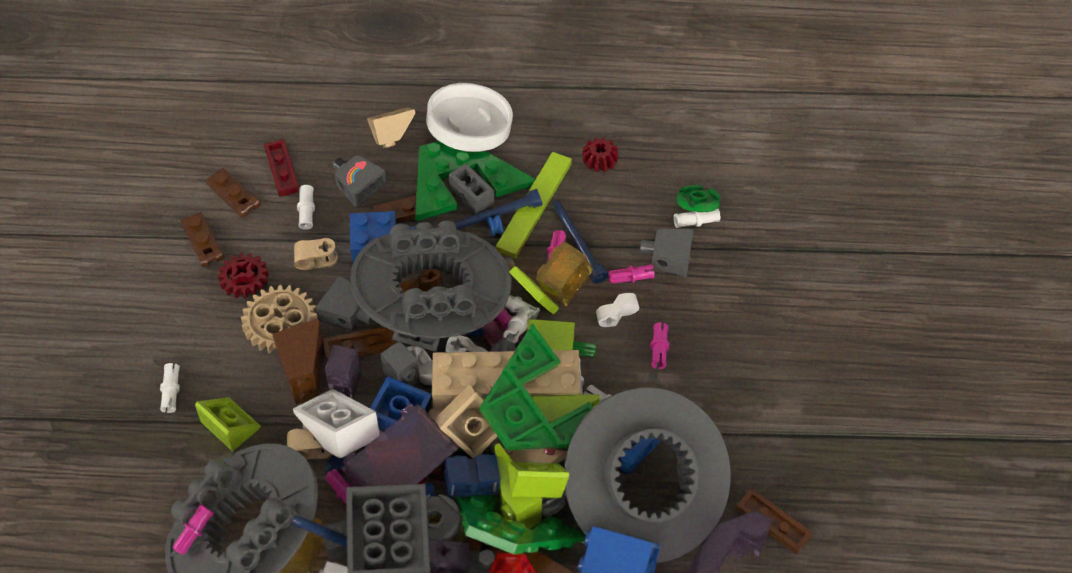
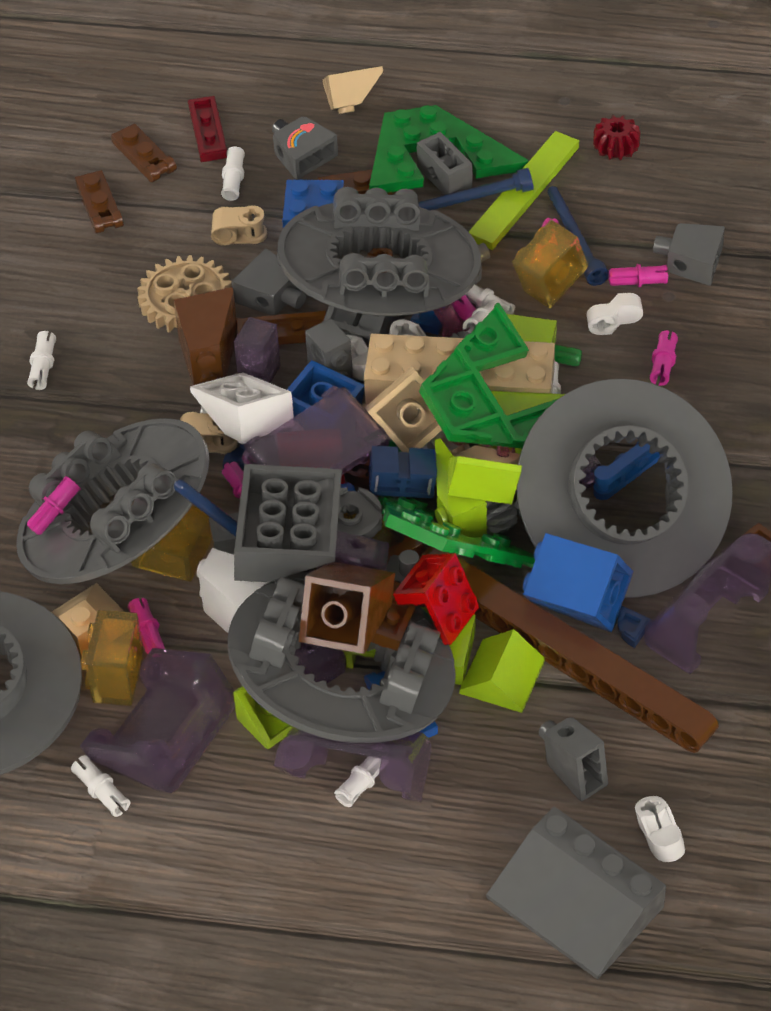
camera: 10 degrees right, 5 degrees down
(226, 421) = (106, 400): lime slope -> none
(243, 275) = (145, 243): dark red gear -> none
(469, 117) = (452, 82): white piece -> none
(495, 225) = (470, 209): blue bush -> none
(534, 289) = (510, 281): lime tile -> none
(696, 218) = (734, 217): white pin -> none
(698, 199) = (736, 195): green tile -> none

